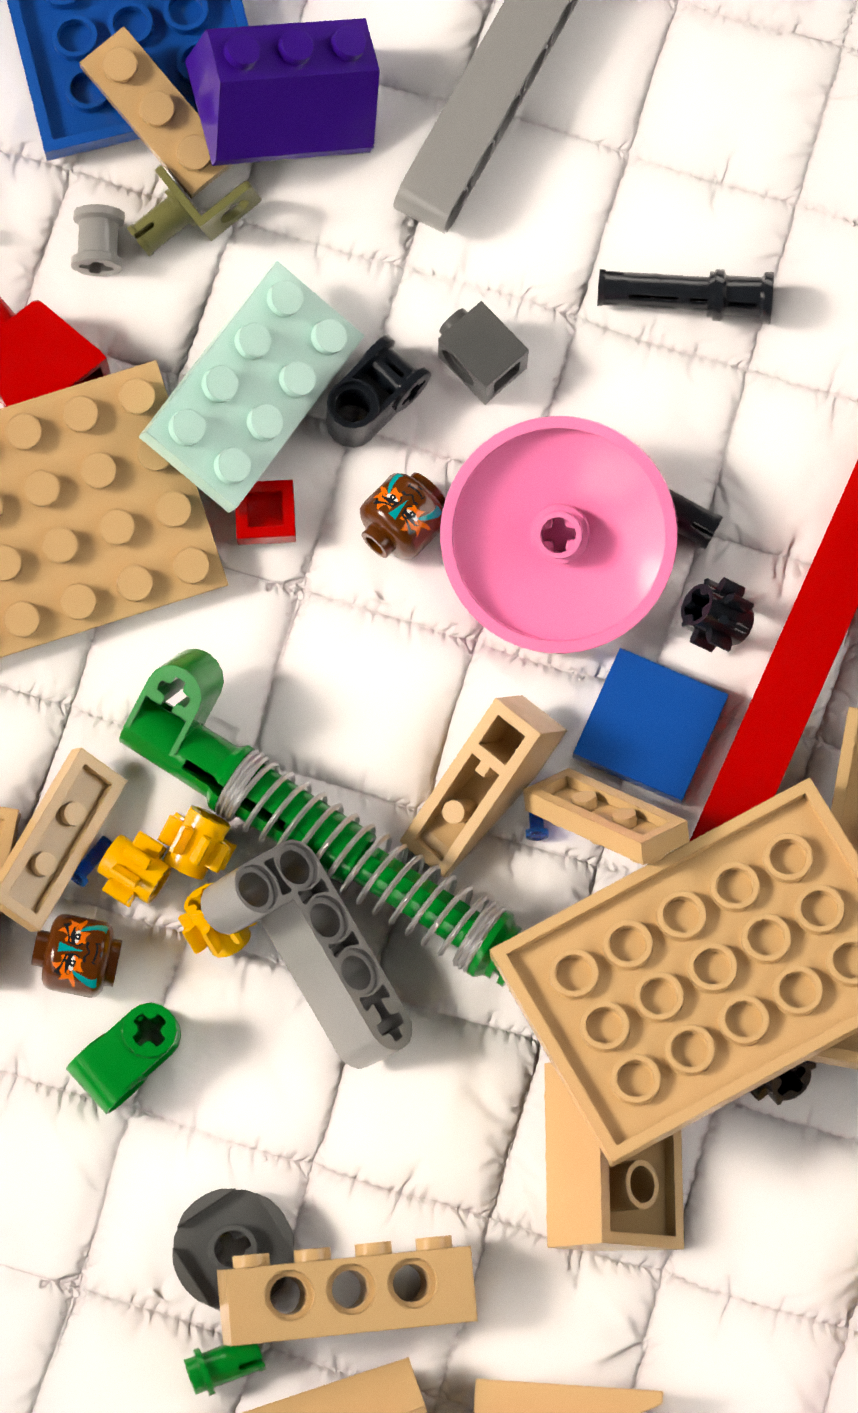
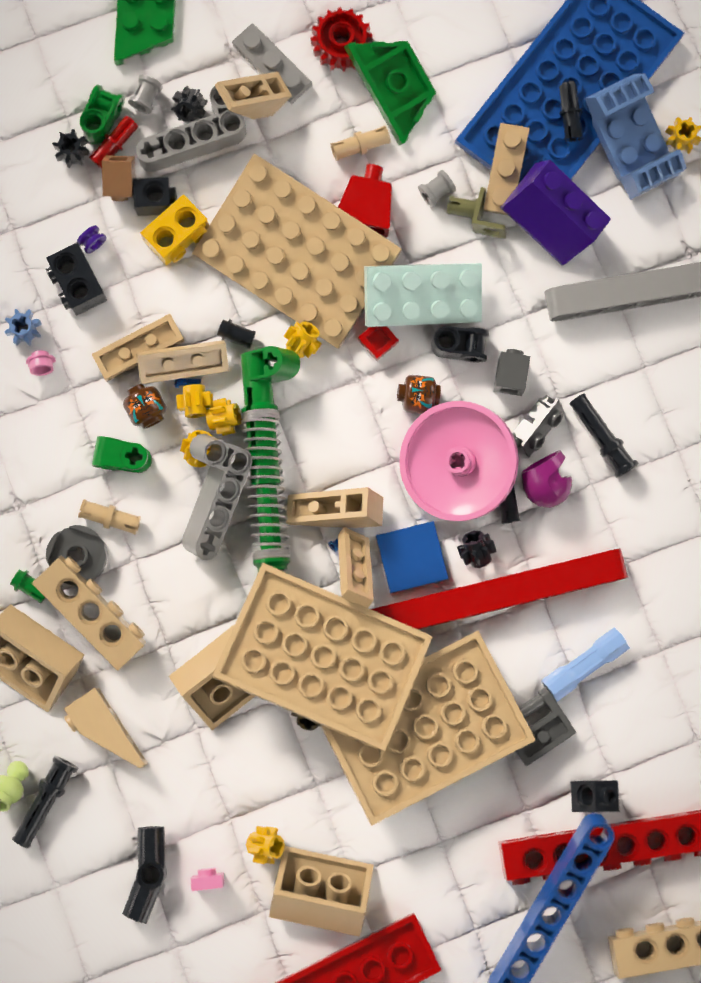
camera: 50 degrees right, 5 degrees up
(76, 722) = (236, 333): none -> black pin
(171, 624) = (303, 339): none -> yellow gear
(212, 1149) = (109, 516): none -> tan pin
(589, 354) = (547, 415): none -> dark grey hinge
(692, 431) = (543, 482): none -> magenta helmet

